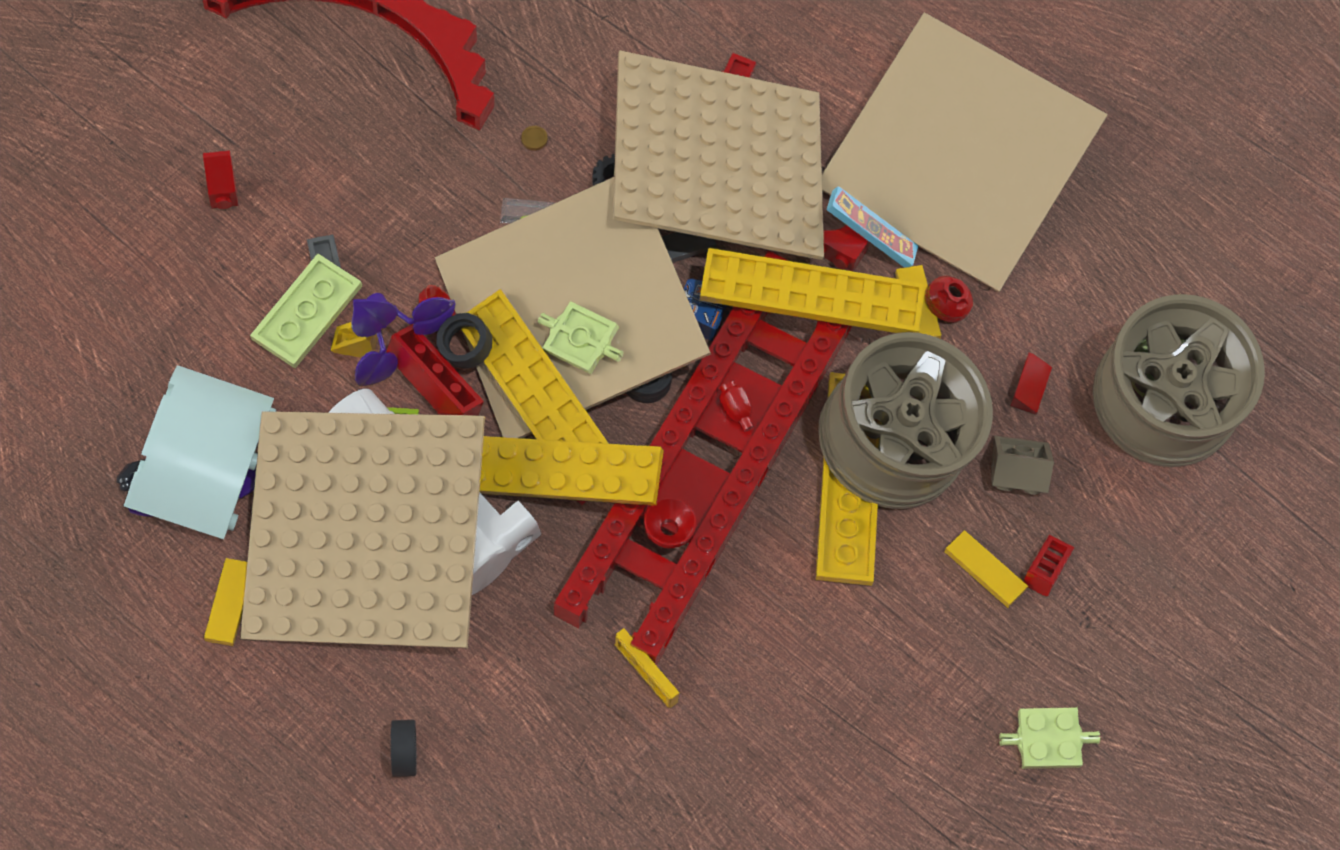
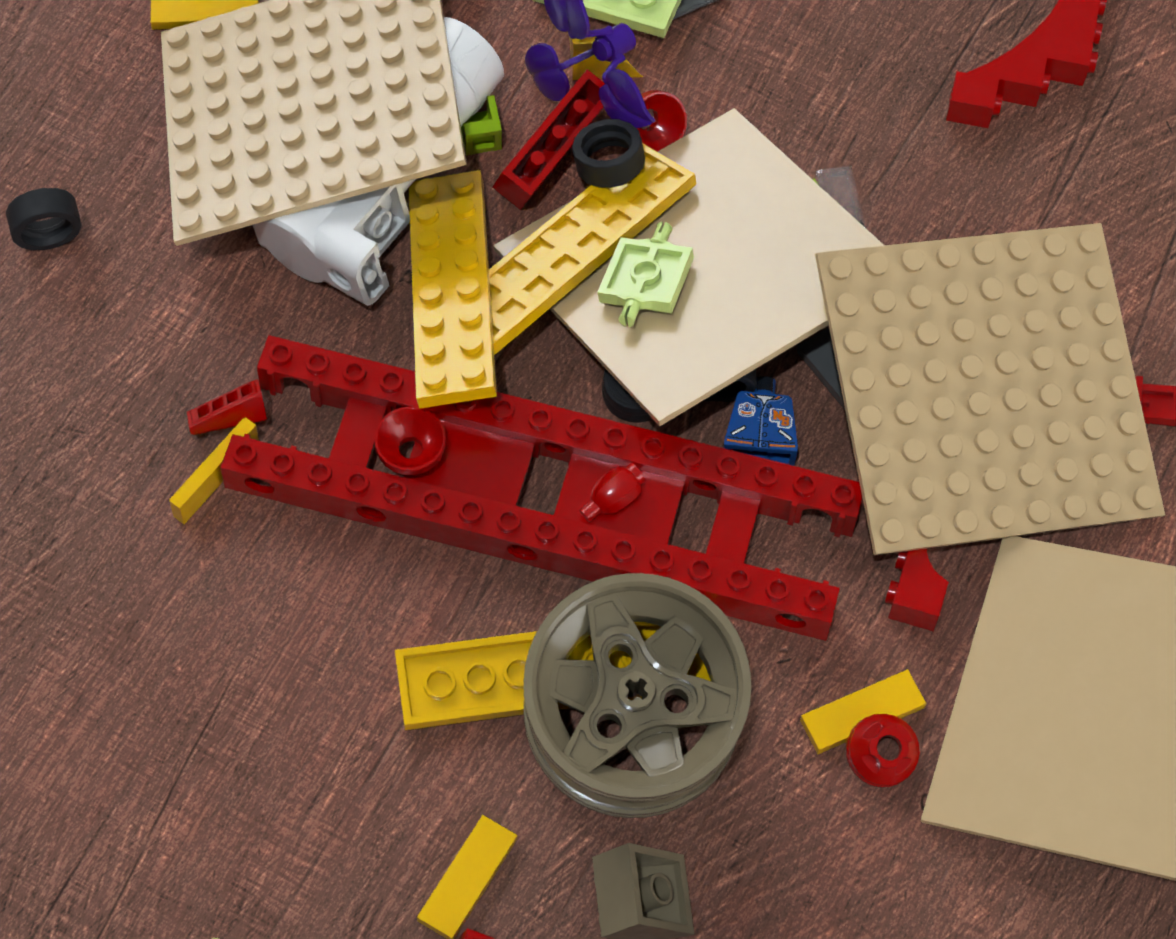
camera: 80 degrees right, 0 degrees up
(534, 138) = (956, 182): pearl gold piece -> none
(596, 631) = (228, 409): none -> red slope
(812, 292) = (808, 547): yellow plate -> none
(872, 227) = (949, 611): tile -> none
(1031, 384) = (781, 891): red slope -> none

